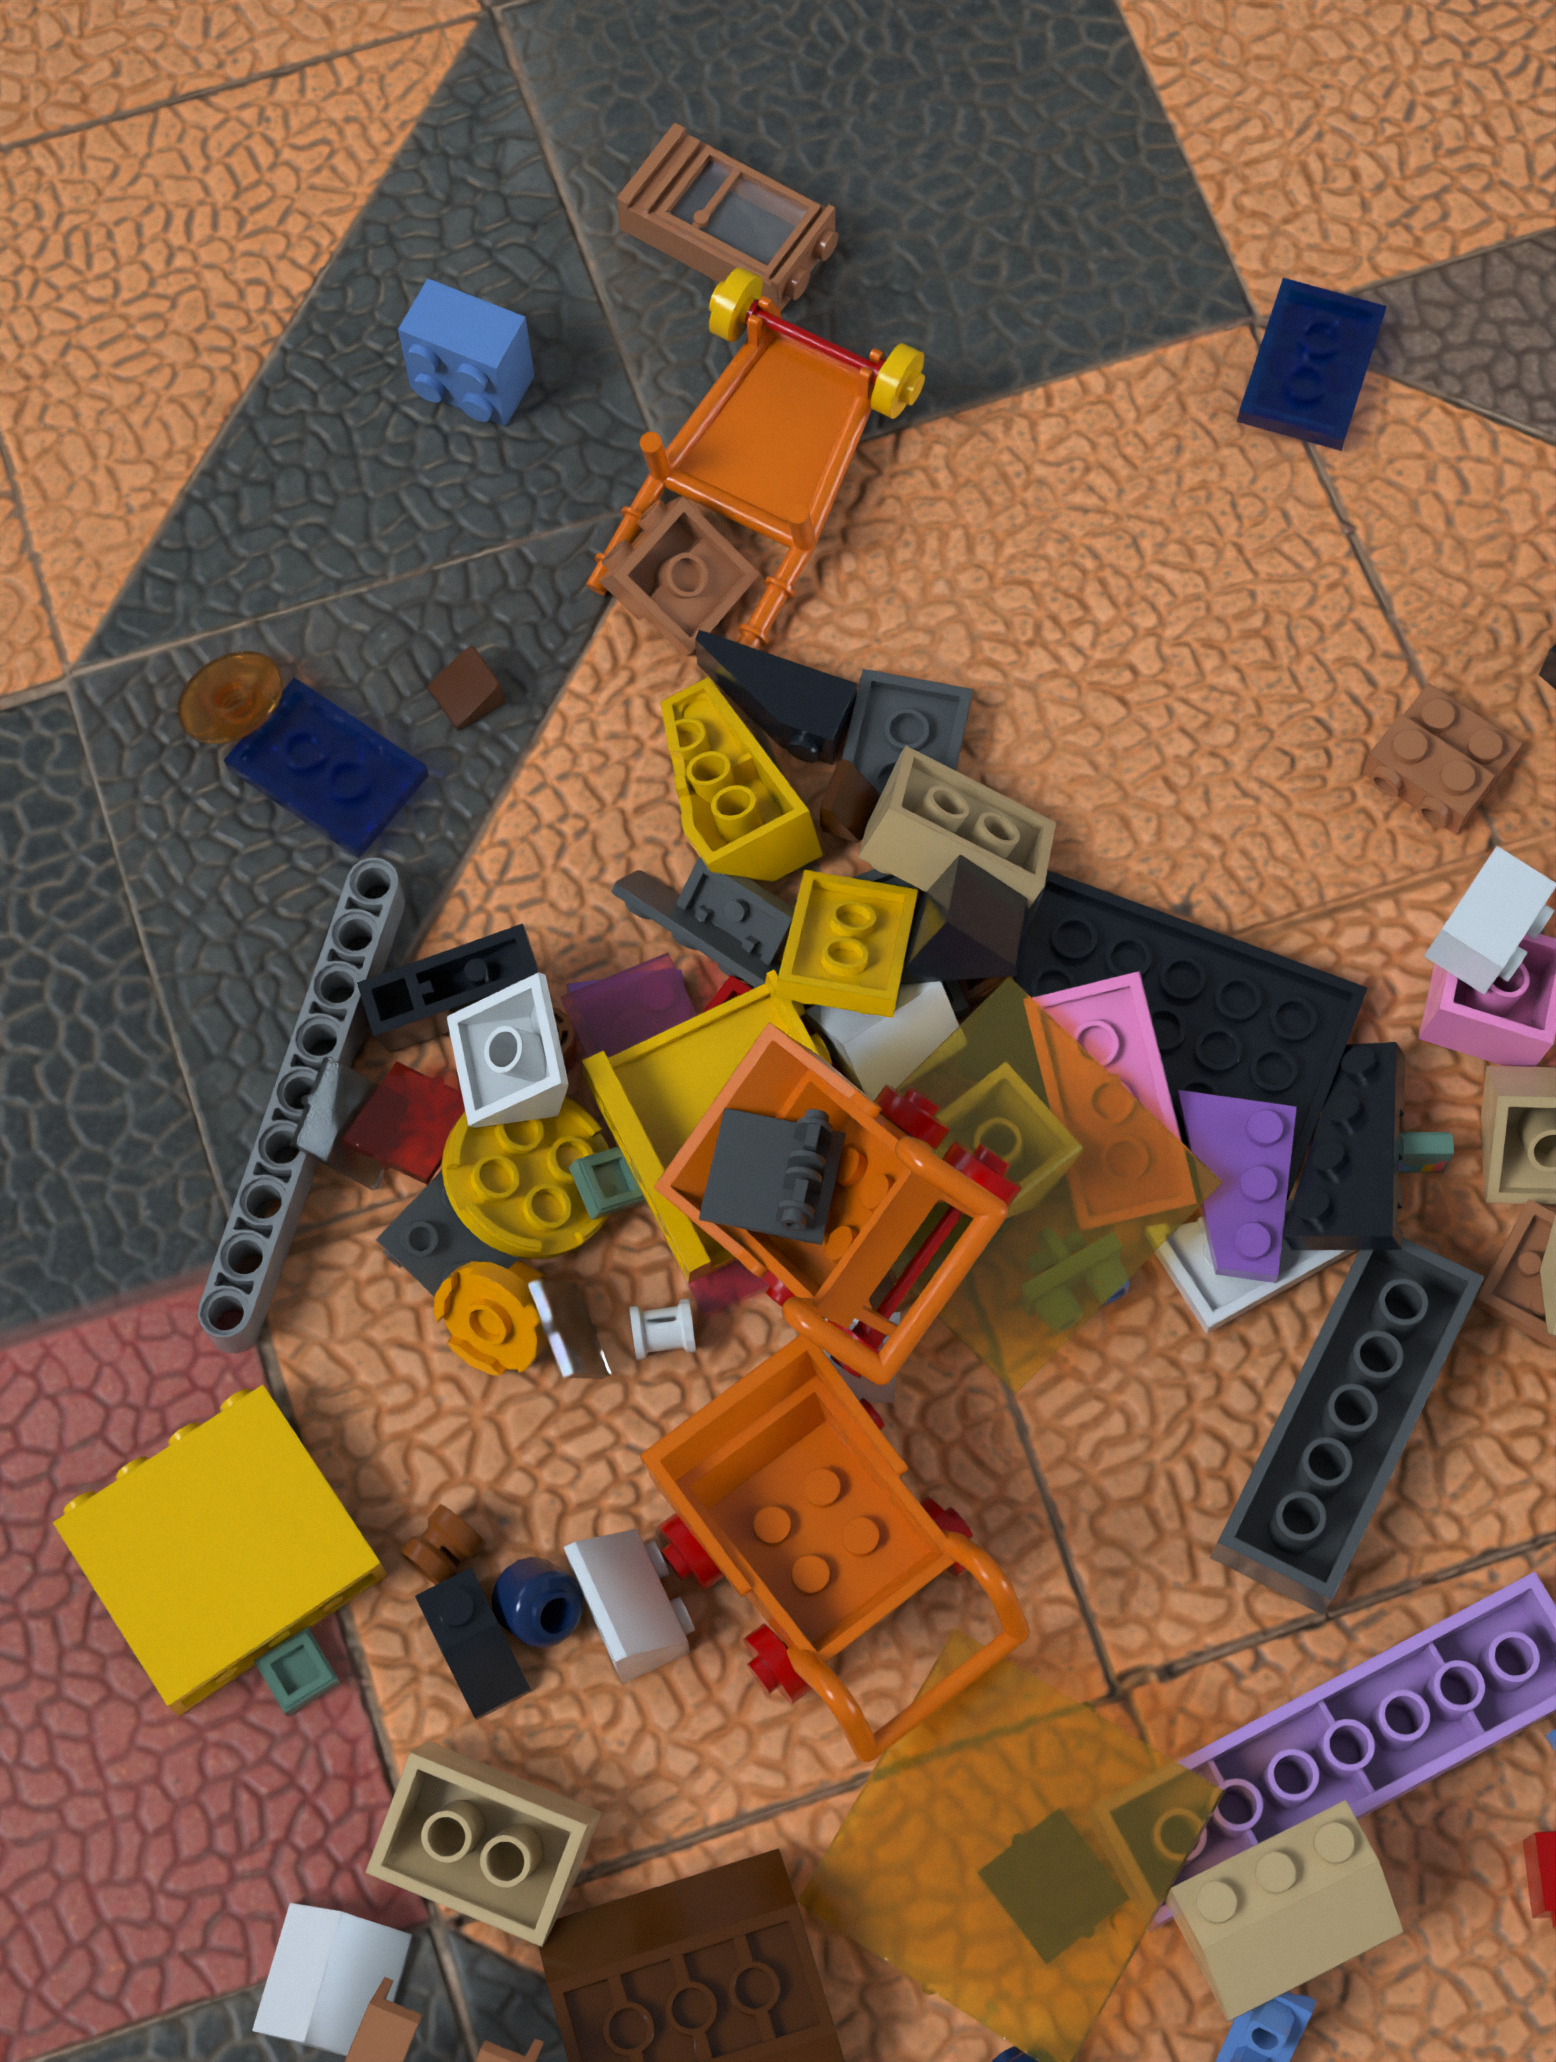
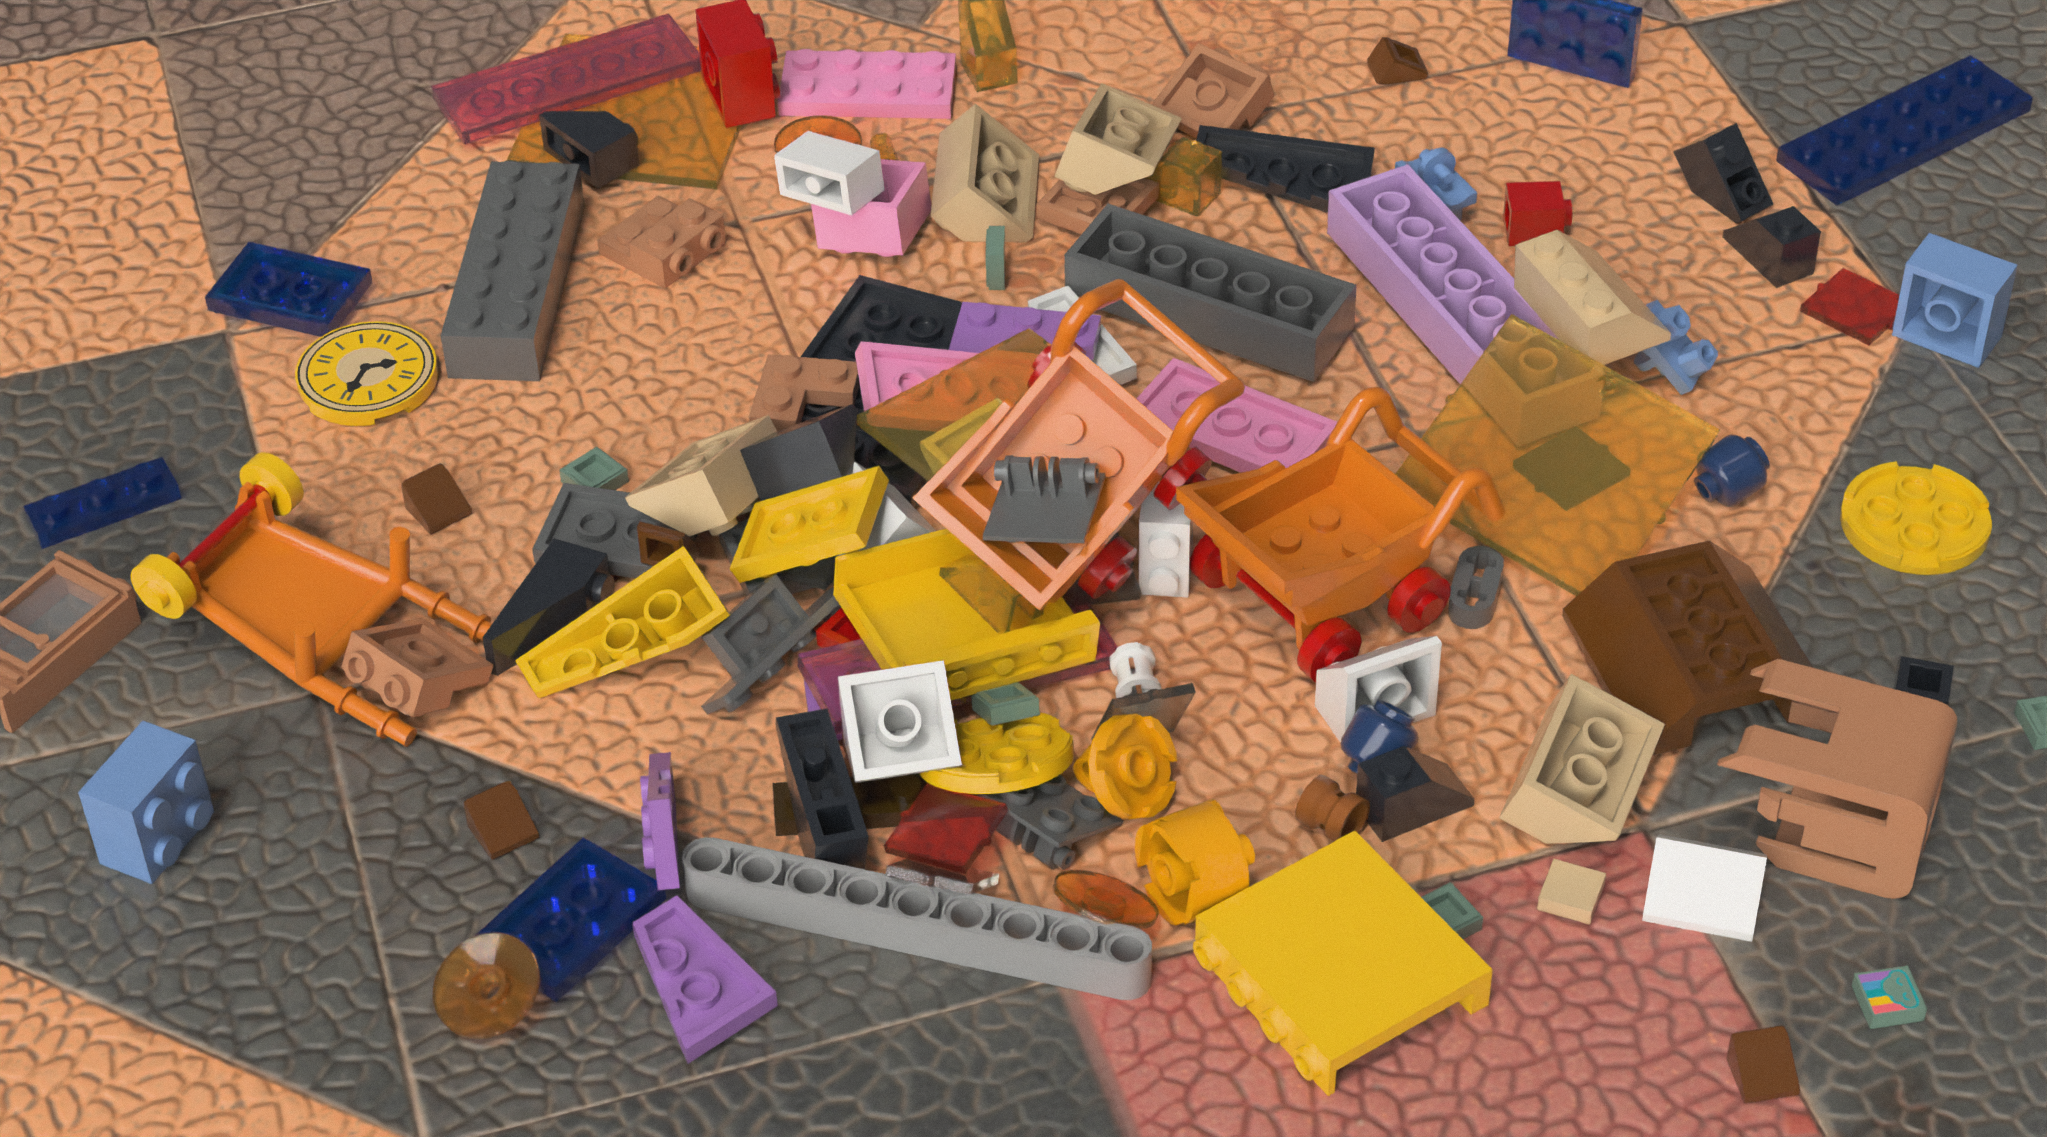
camera: 90 degrees left, 25 degrees down
(53, 2016) = (1763, 1064): none -> reddish brown slope
(239, 900) = (699, 978): none -> medium lavender wing
(325, 1821) = (1571, 891): none -> tan tile
(341, 1299) = (1105, 899): none -> clear orange dish
(343, 1384) = (1193, 860): none -> light orange brick
(429, 831) = (660, 821): none -> medium lavender wing
(814, 1757) = (1484, 588): none -> dark grey beam
(953, 243) = (102, 502): none -> clear blue plate
(957, 565) = (434, 498): none -> reddish brown slope
(1010, 725) = (595, 470): none -> sand green tile
(1110, 1448) = (1244, 431): none -> bright pink plate
(1139, 915) = (796, 381): none -> nougat plate
(1177, 467) = (366, 372): none -> tile
(1351, 1171) = (1017, 270): black wing -> none
(1356, 594) = (513, 272): none -> dark grey brick

